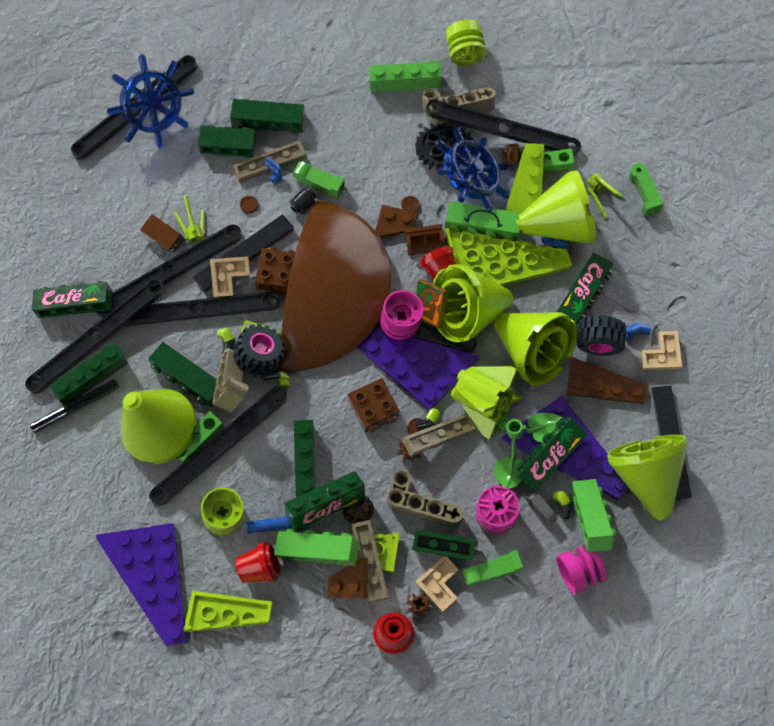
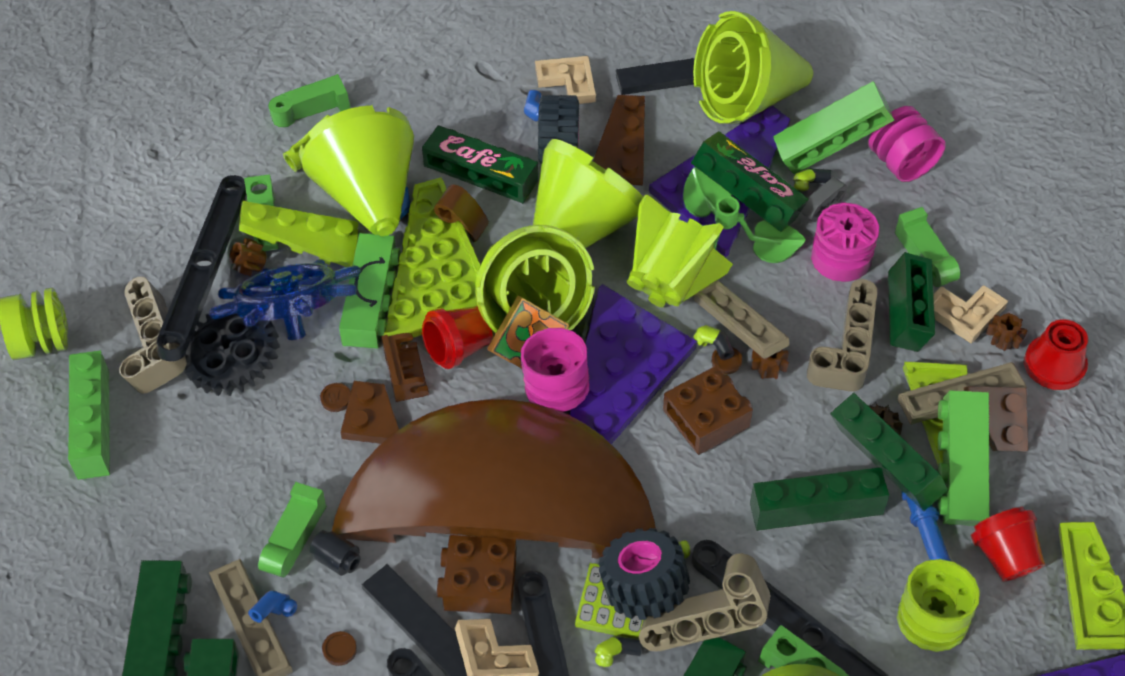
camera: 95 degrees left, 15 degrees down
(538, 275) = (460, 206): none -> reddish brown panel

